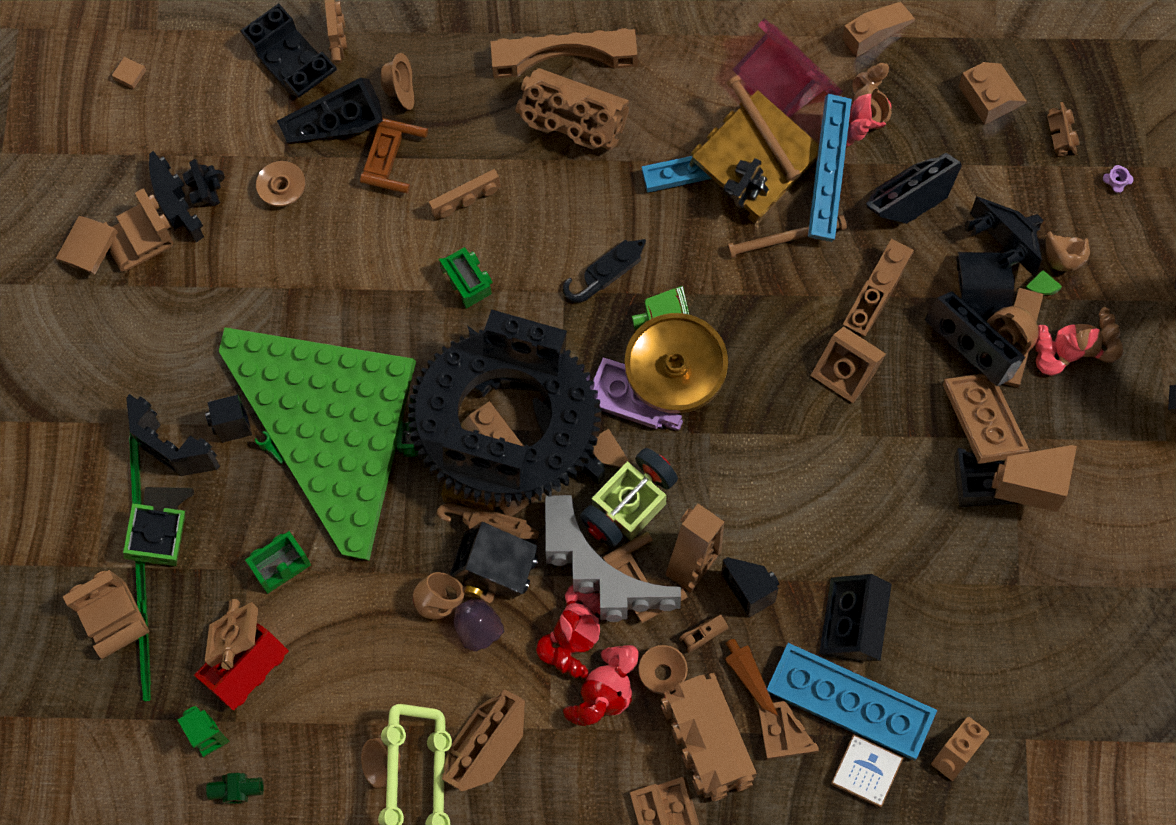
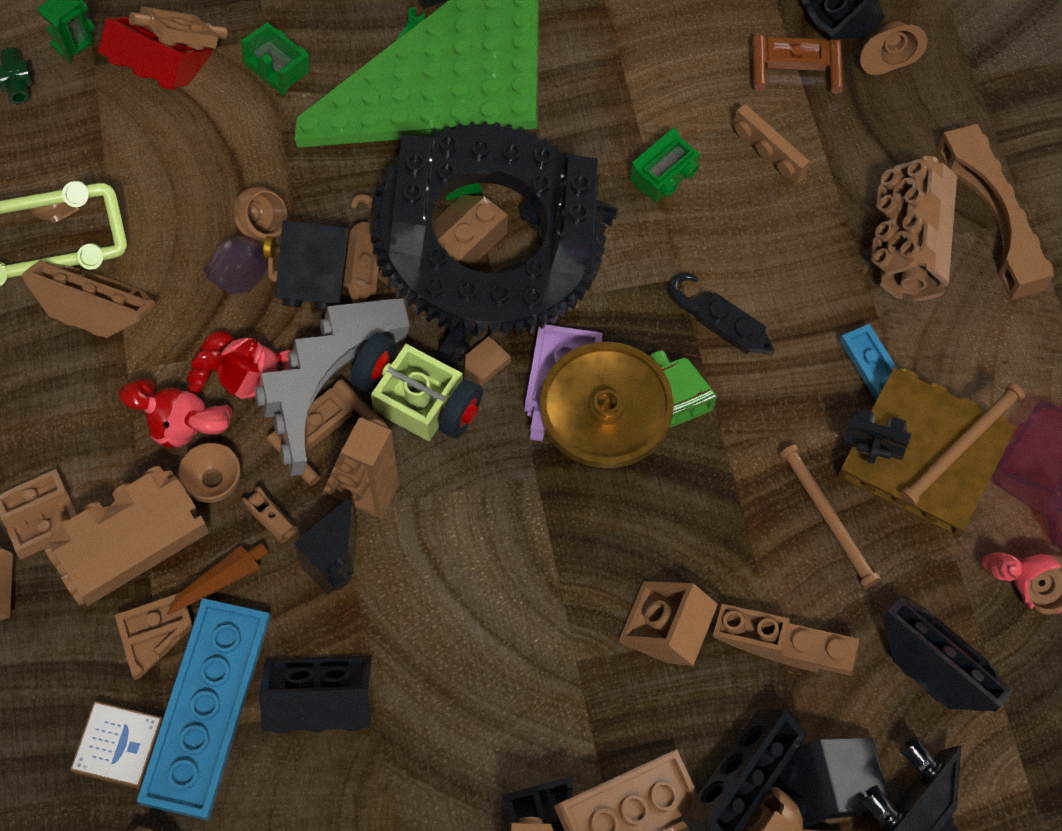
camera: 70 degrees right, 5 degrees down
(829, 168) = (938, 540): dark azure plate -> none

